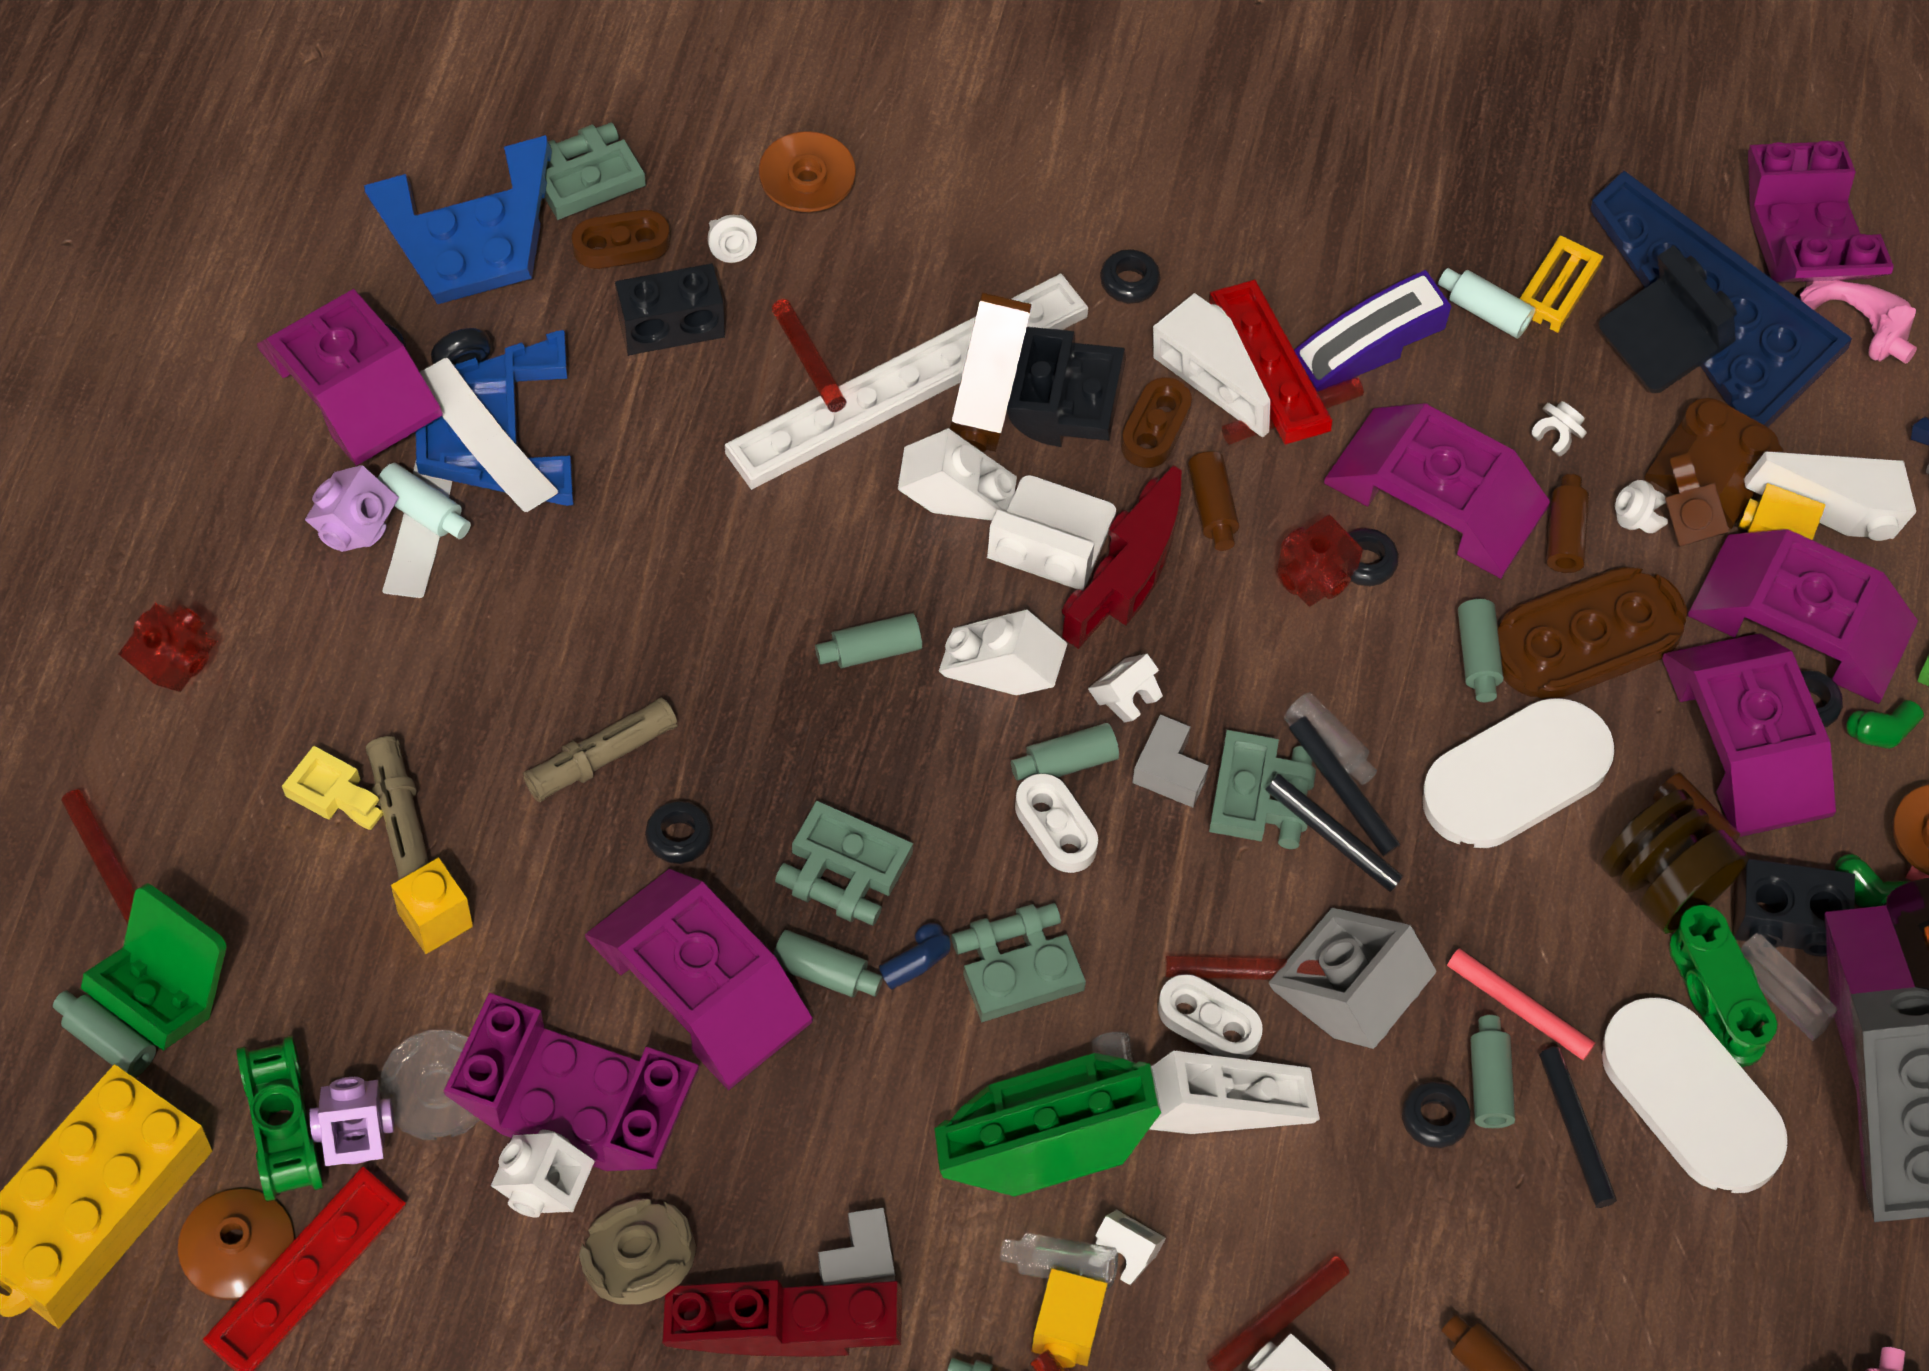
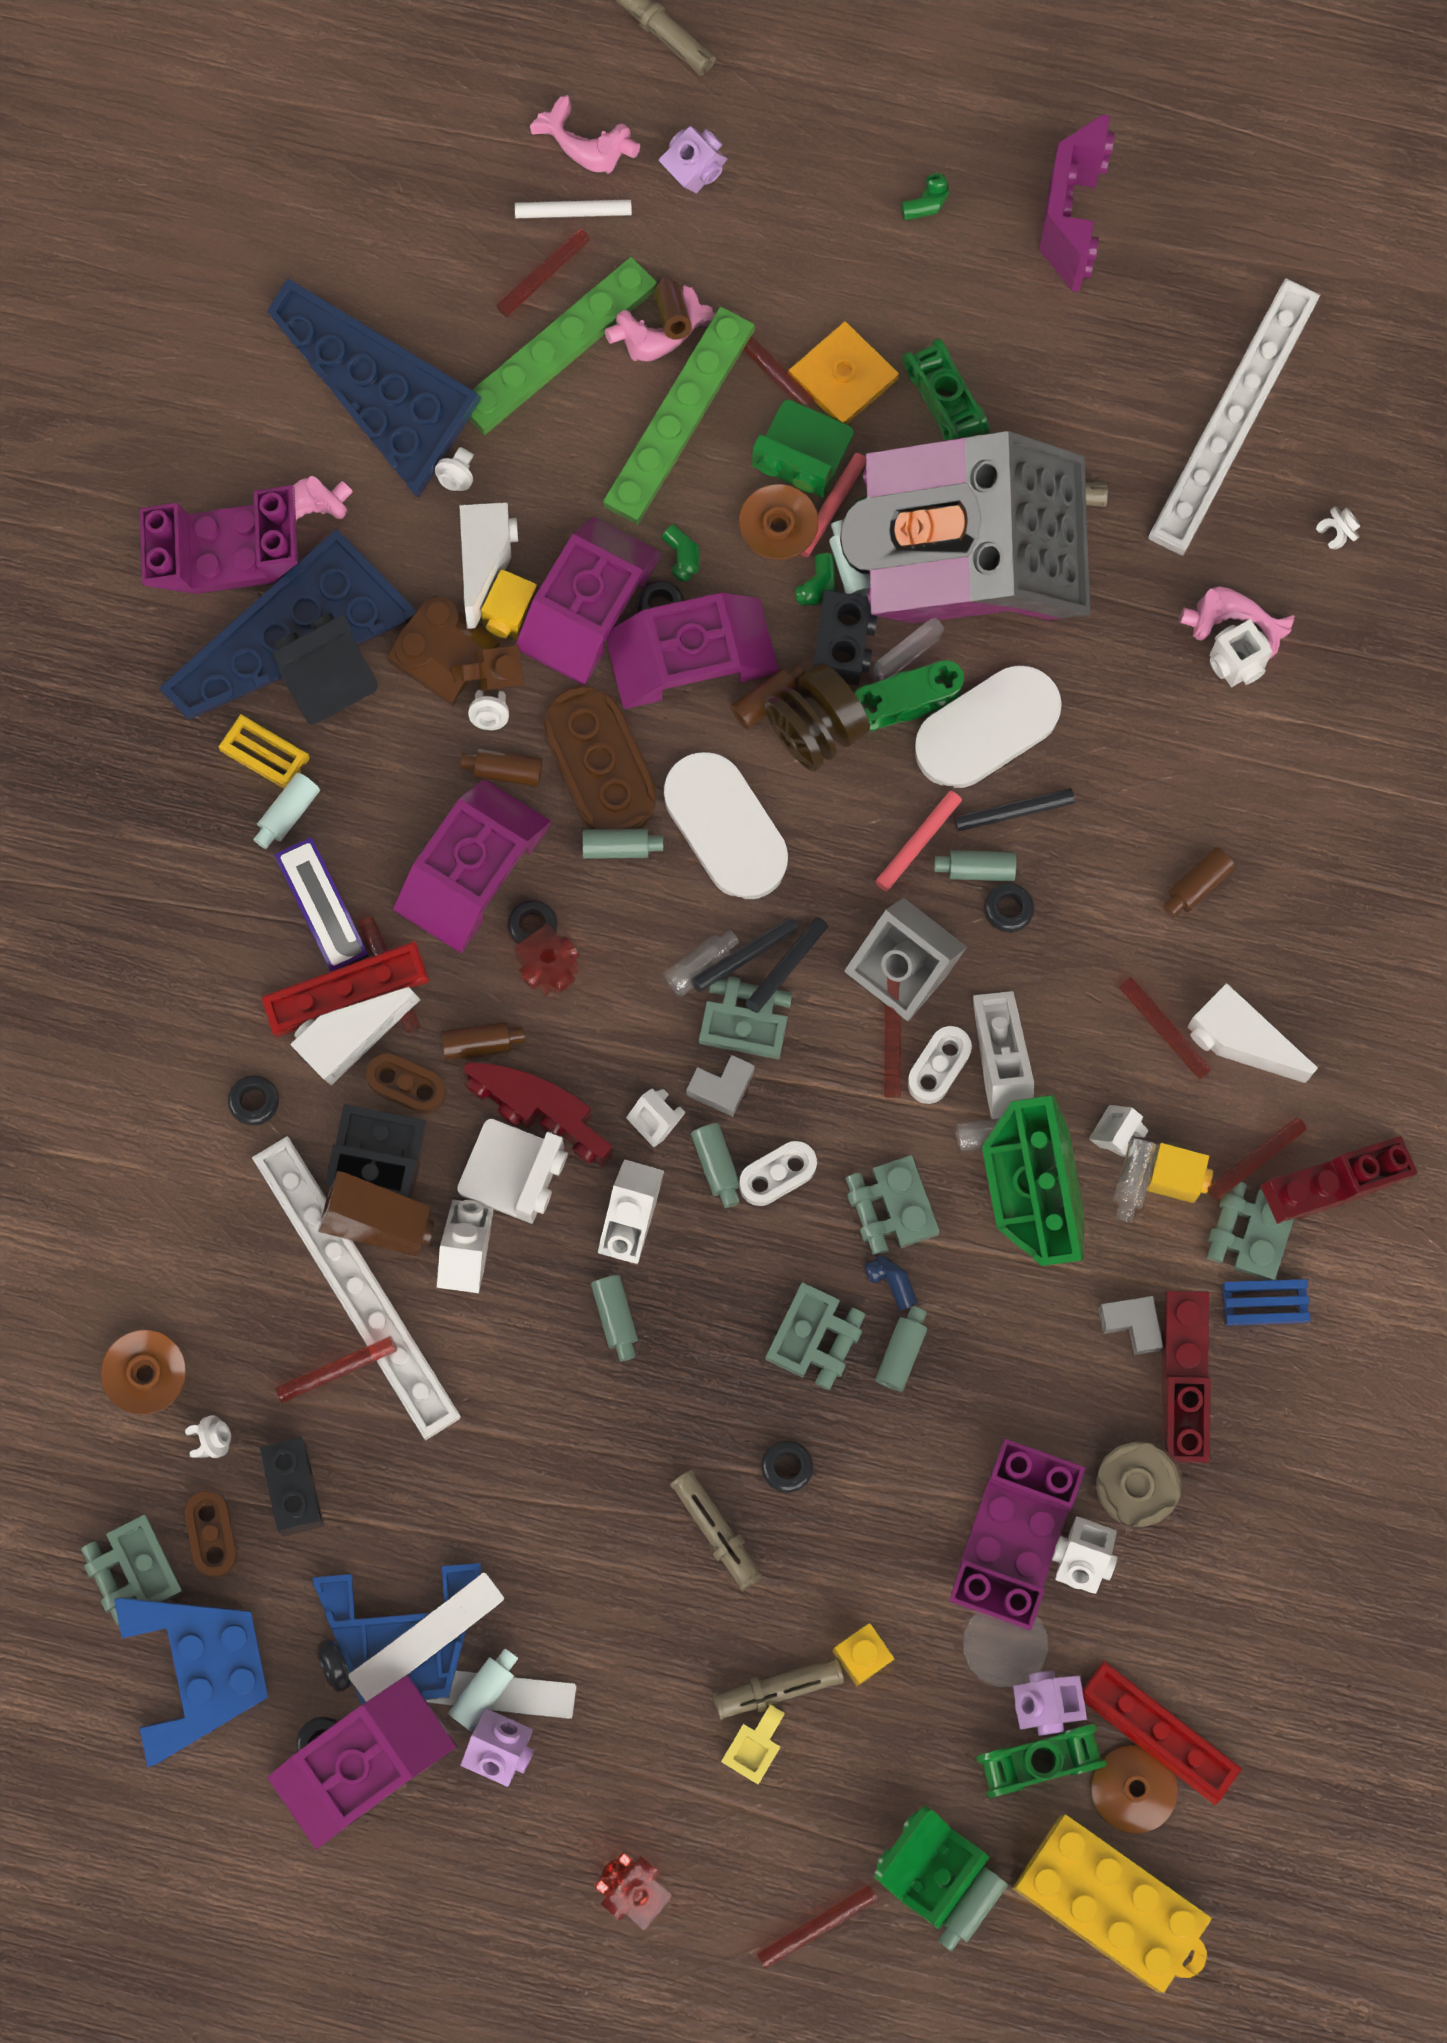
camera: 90 degrees left, 15 degrees up
(704, 973) = (912, 1446): magenta slope -> none
(1563, 419) = (407, 760): white plate -> none

